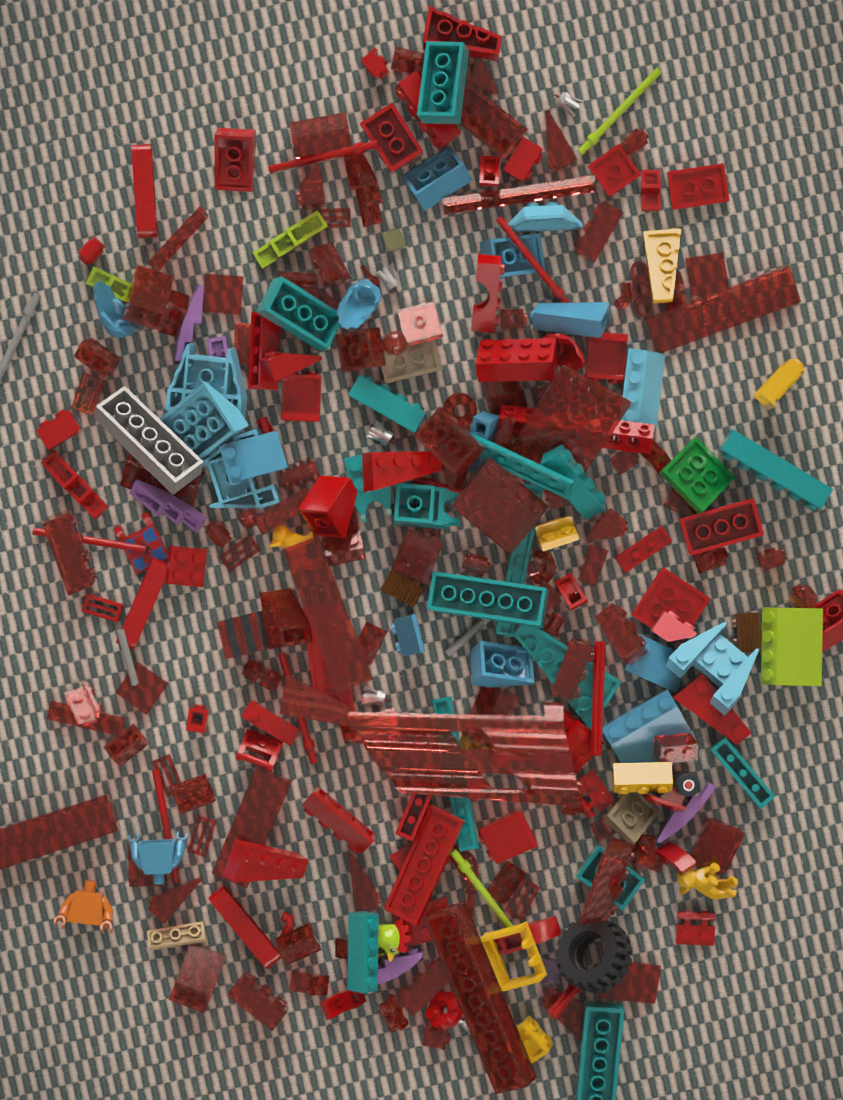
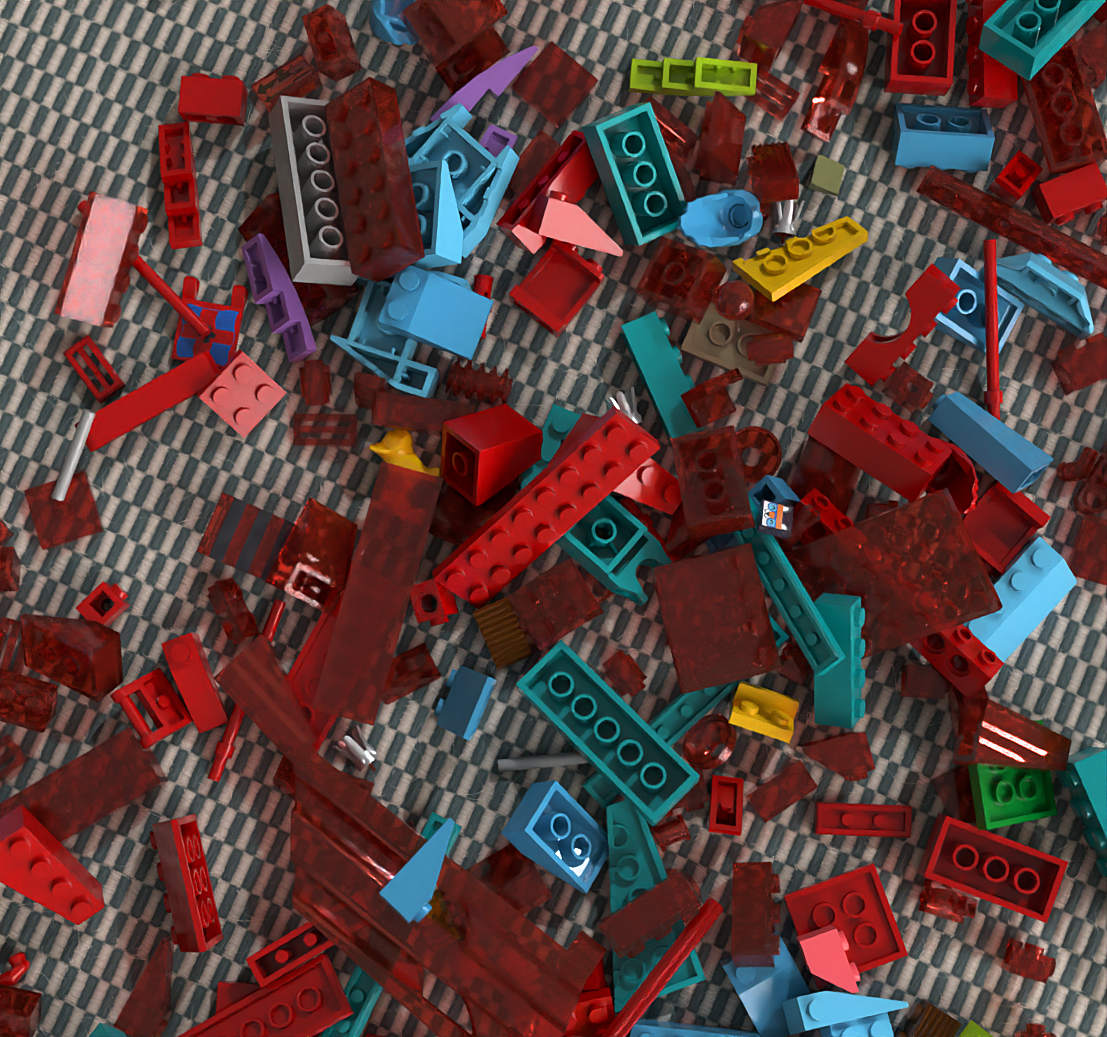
camera: 35 degrees right, 5 degrees down
(175, 415) = (374, 180): none -> clear red brick
(201, 752) = (73, 653): none -> clear red slope
(359, 591) = (421, 601): none -> red brick
(366, 260) = (773, 172): none -> clear red brick
(379, 514) = (546, 508): none -> red plate
(408, 302) = (800, 258): none -> yellow wing
(419, 398) = (711, 399): none -> clear red panel
(429, 352) = (770, 348): none -> clear red brick
(449, 737) = (415, 883): none -> dark azure slope
(493, 436) = (775, 519): none -> tile
(681, 461) = (1005, 739): none -> clear red slope

